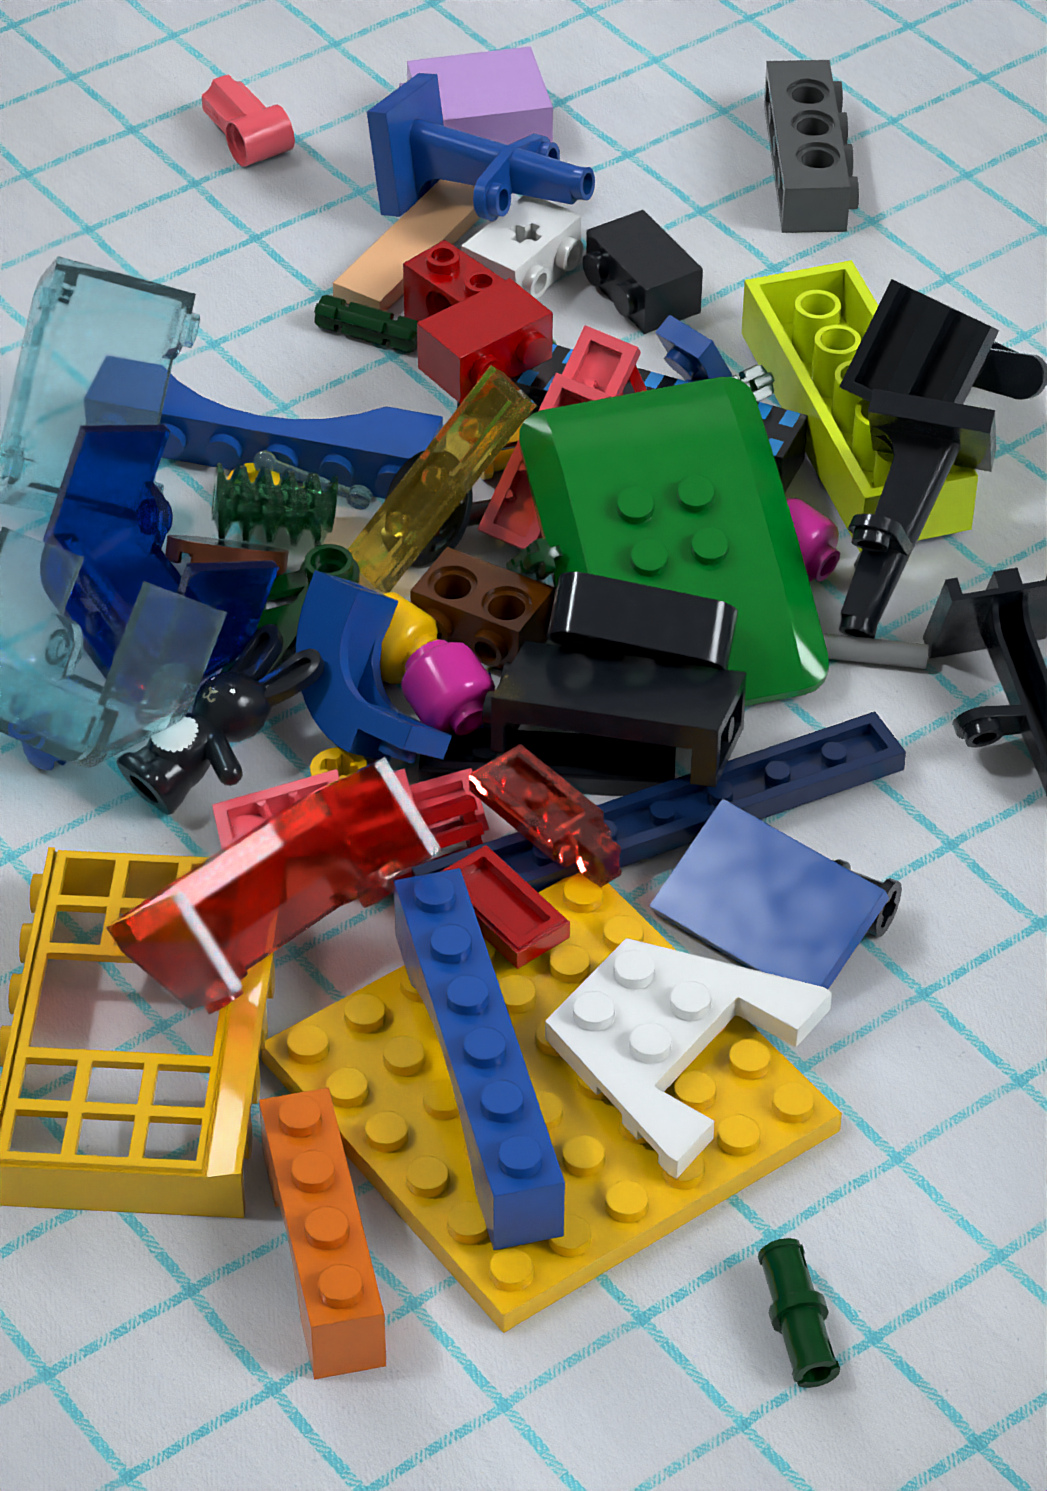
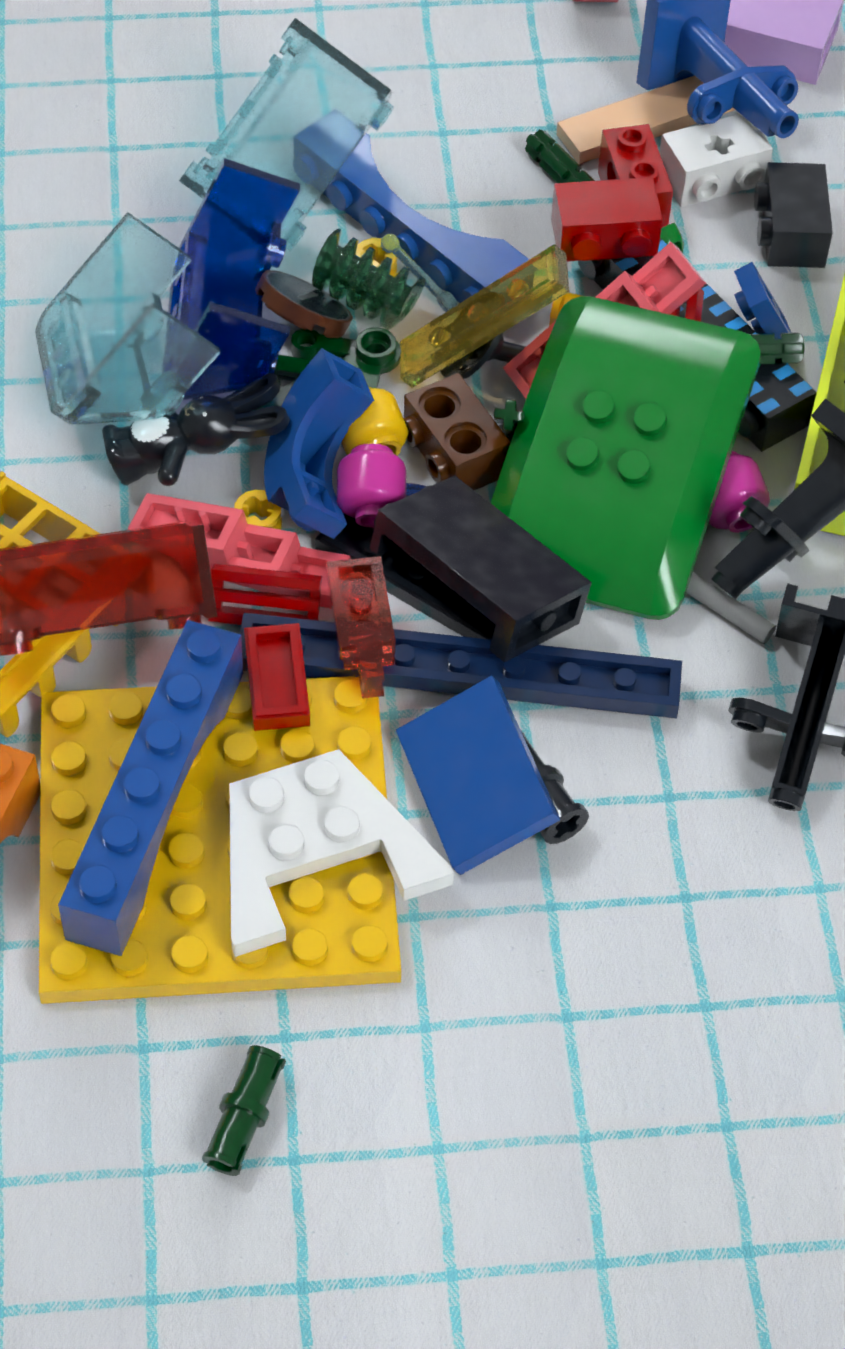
camera: 30 degrees right, 10 degrees up
(641, 621) = (538, 505): black beam -> none

